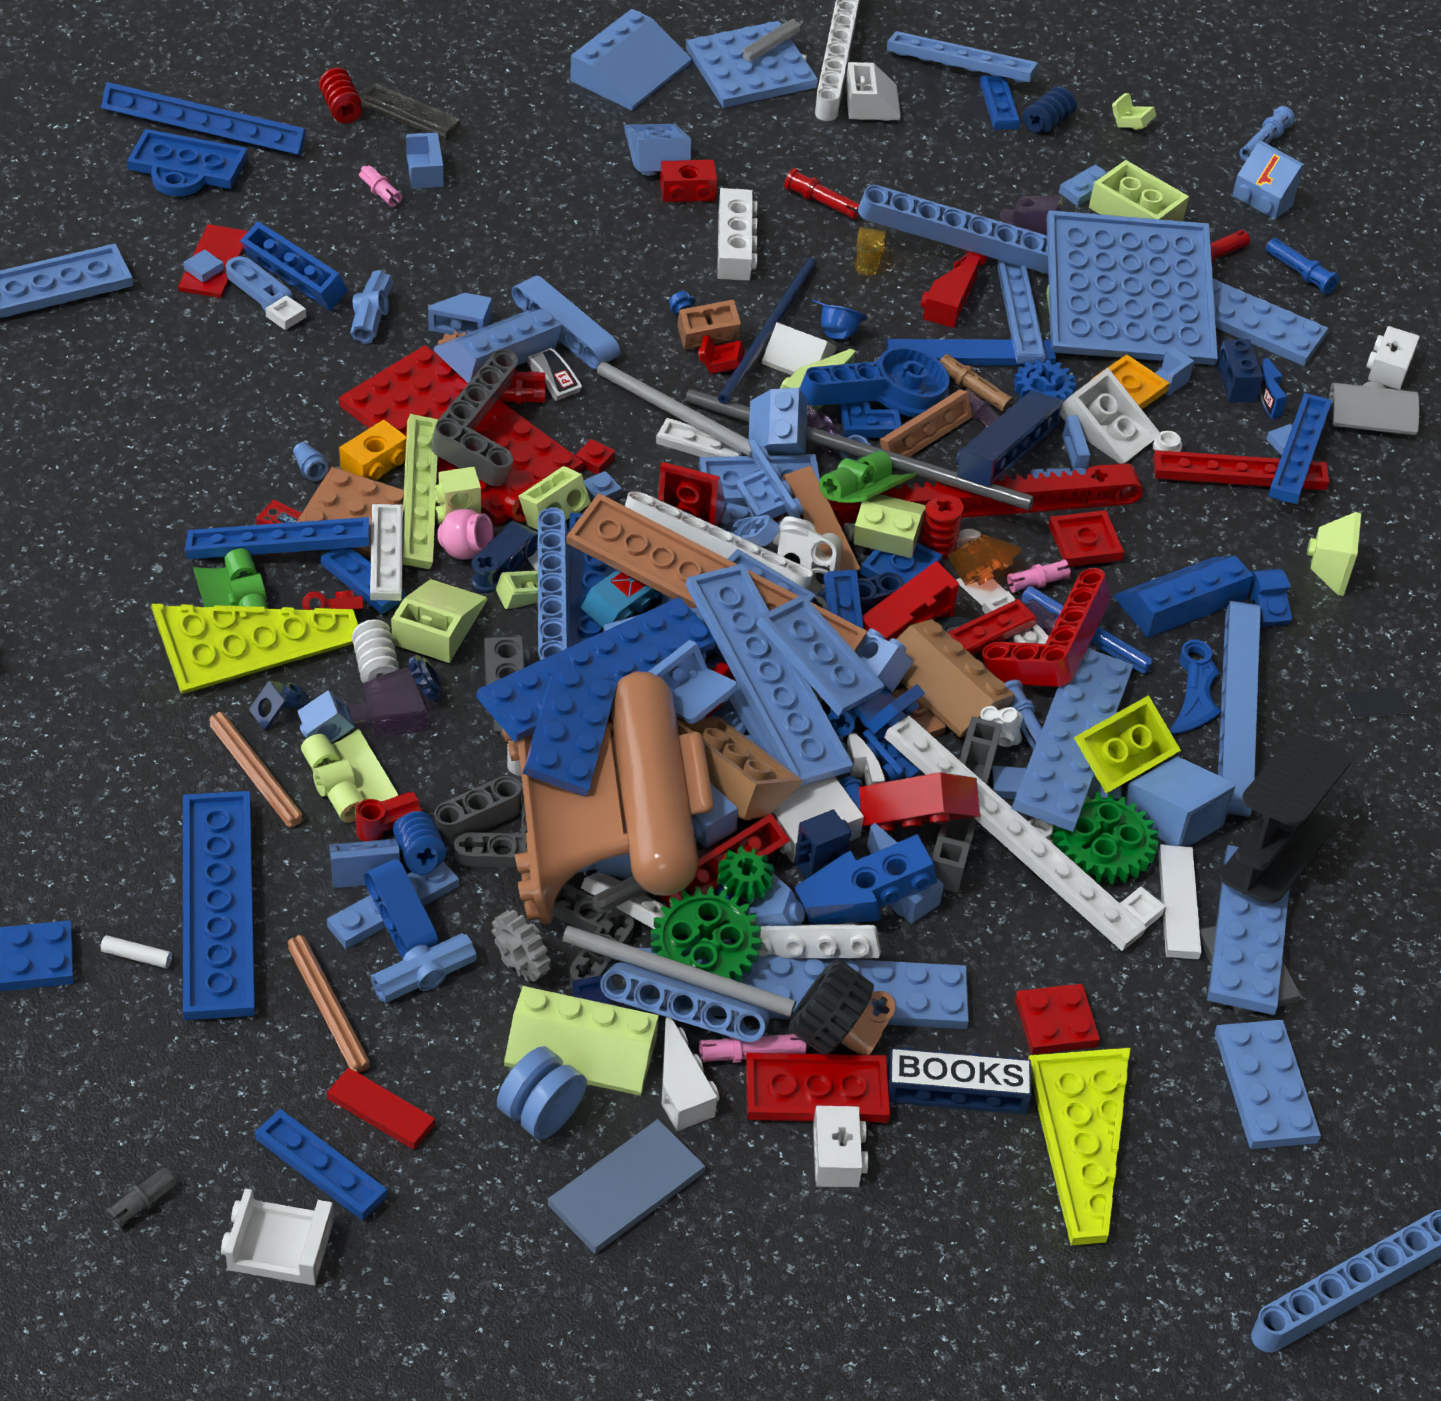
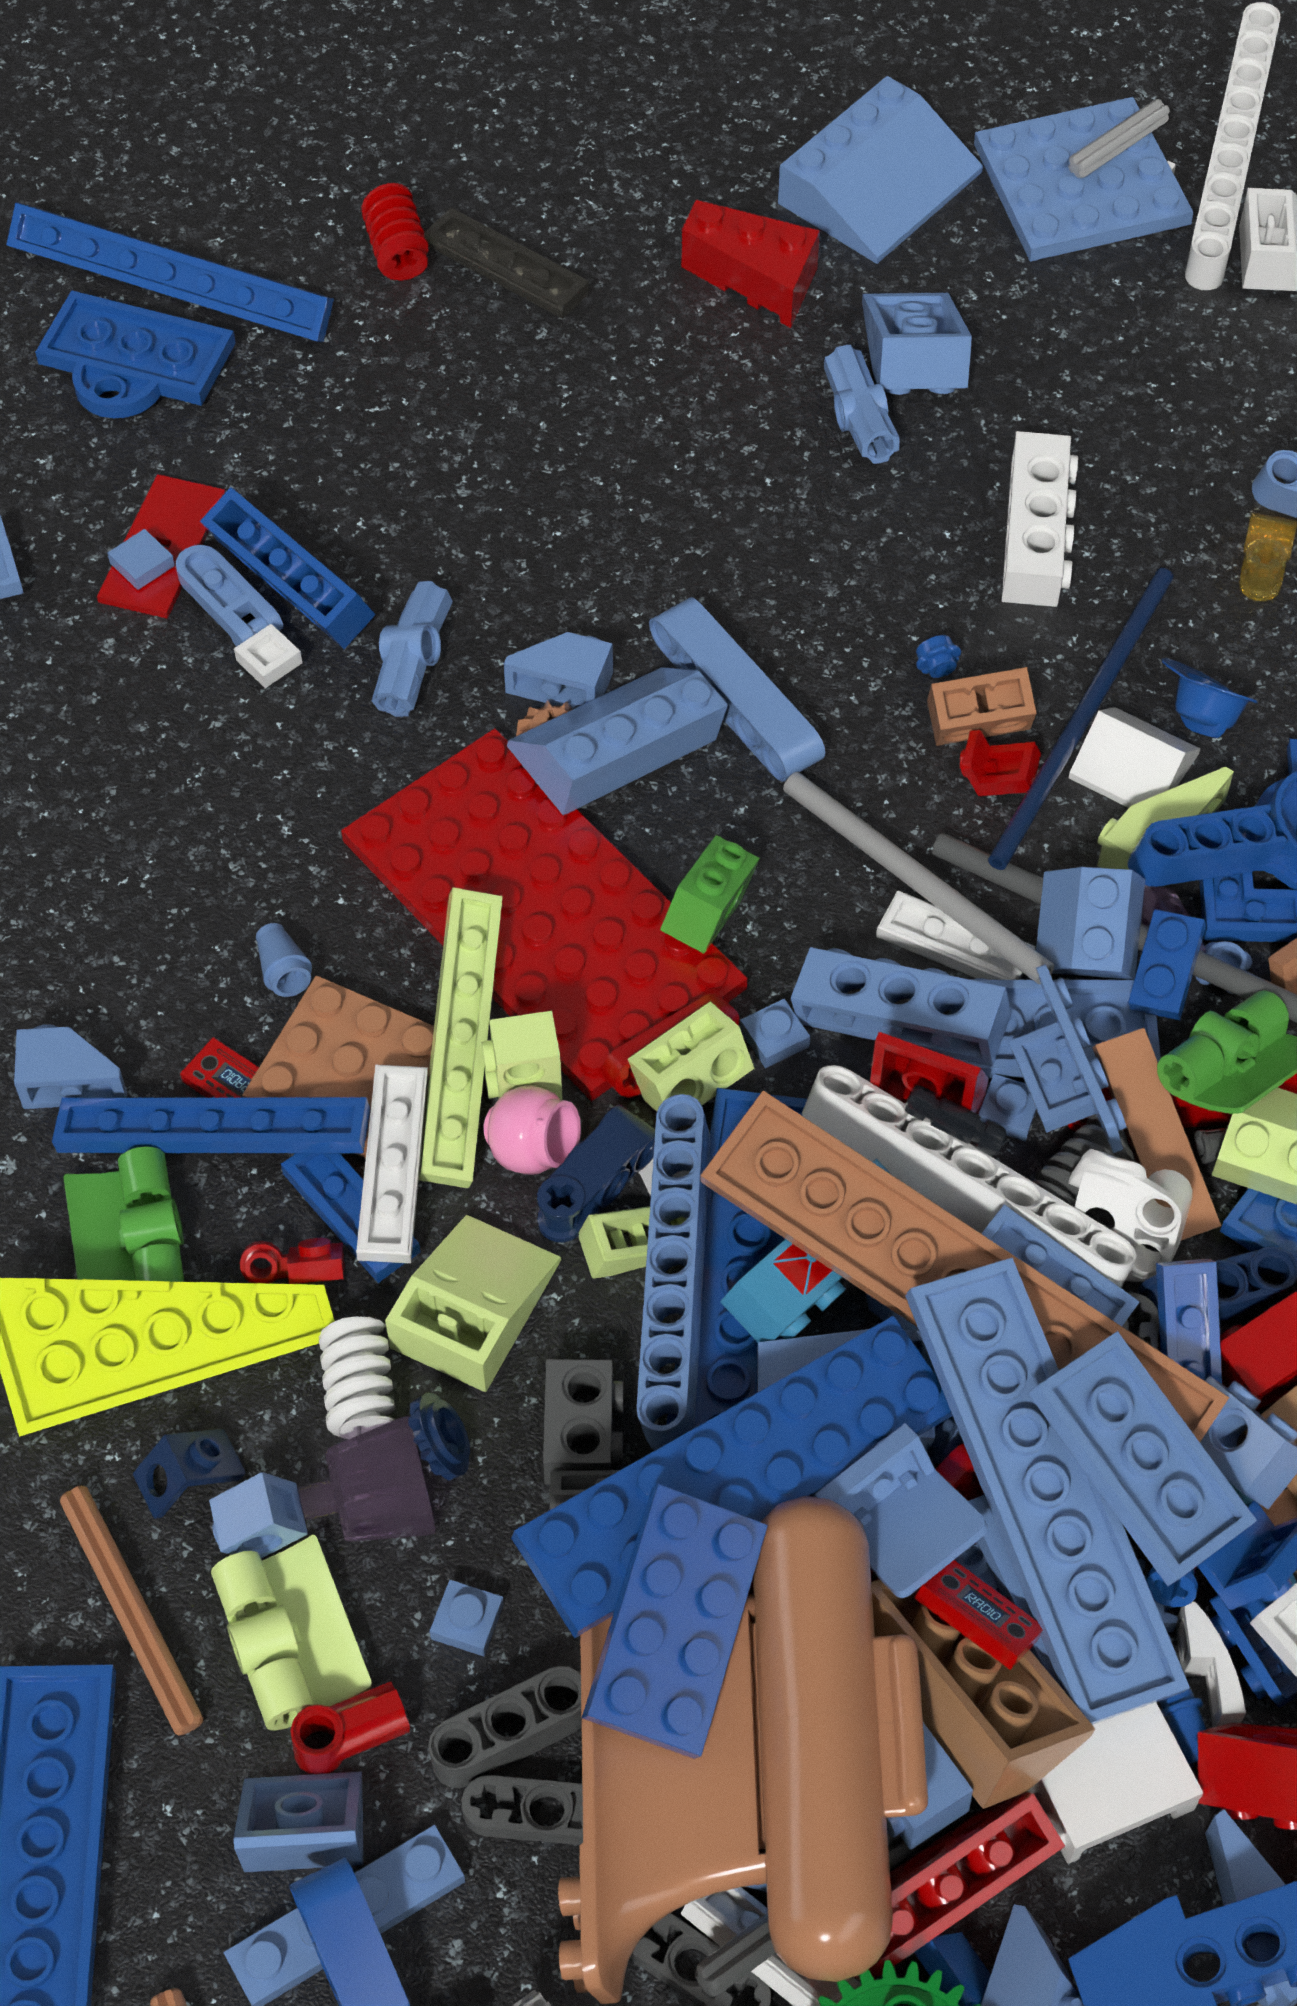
camera: 10 degrees right, 10 degrees up
(187, 512) = (60, 1065): none -> medium blue slope
(374, 451) = (400, 925): light orange brick -> none
(380, 185) = (446, 406): bright pink axle -> none
(419, 842) = (397, 1807): blue piece -> none
(424, 160) = (523, 360): medium blue panel -> none
(448, 766) = (466, 1618): none -> medium blue plate
(454, 431) = (557, 890): dark grey beam -> none
(526, 388) = (648, 819): red hips -> none
(556, 103) = (751, 254): none -> red wedge
(559, 377) = (710, 791): slope -> none
(559, 417) = (709, 894): none -> bright green brick
(595, 456) = (769, 964): red plate -> none
(627, 179) = (861, 404): none -> medium blue piece
(639, 463) = (968, 1035): none -> medium blue brick
(688, 180) = (962, 409): red brick -> none
(707, 513) = (955, 1120): none -> black axle
(734, 871) = (998, 1930): green gear -> none
(736, 732) = (980, 1613): none -> red tile
(756, 529) = (1040, 1150): medium blue beam -> none
(811, 189) = (1173, 430): red pin -> none
(821, 842) = (1125, 1860): dark blue brick -> none
(822, 442) = (1167, 964): none -> blue plate

